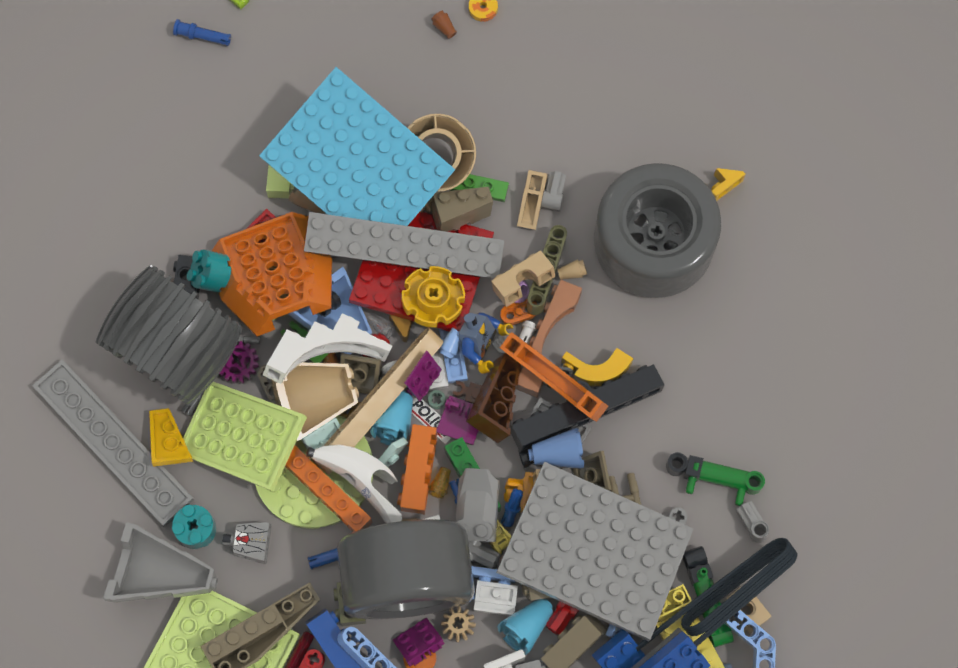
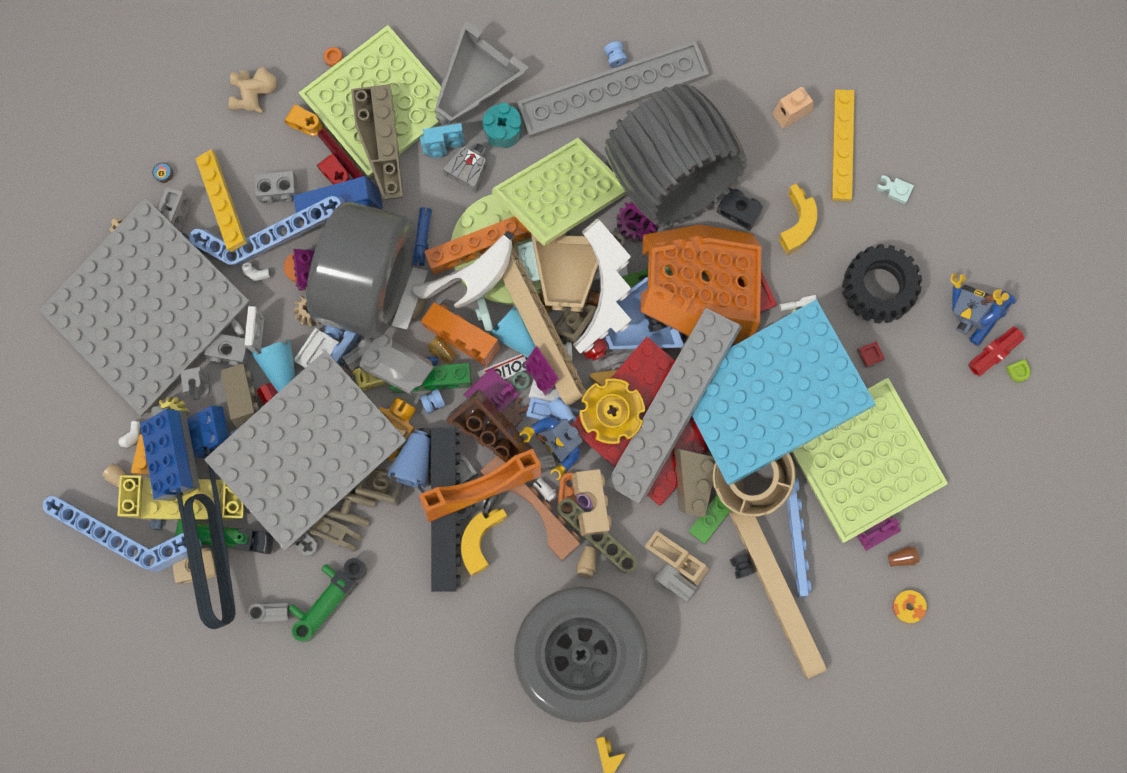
camera: 120 degrees right, 5 degrees up
(65, 267) = (795, 105): none -> light nougat torso
(76, 449) = (615, 53): none -> light blue wheel
(85, 216) = (843, 145): none -> yellow plate
(111, 153) = (898, 190): none -> light aqua plate
(166, 440) = (586, 130): yellow wing -> none
(178, 215) = (798, 235): none -> yellow arch
(198, 46) = (974, 306): none -> torso
(204, 107) = (896, 264): none -> black tyre
(209, 270) = (730, 222): teal brick -> none
(230, 19) = (996, 351): none -> red piece
(237, 577) = (437, 139): none -> medium azure plate
(253, 189) = (793, 305): none -> white piece
(277, 117) = (871, 354): none -> red tile
(385, 68) = (870, 465): none -> yellowish green plate
(431, 52) = (879, 533): none -> magenta hinge
(485, 103) = (798, 544): none -> light blue plate
(494, 467) = (432, 401): none -> light blue wheel
(512, 508) = (385, 399): blue axle -> none
(514, 144) = (742, 566): none -> black wheel
(524, 105) = (779, 595): none -> tan beam
(654, 497) = (334, 533): none -> dark tan hinge

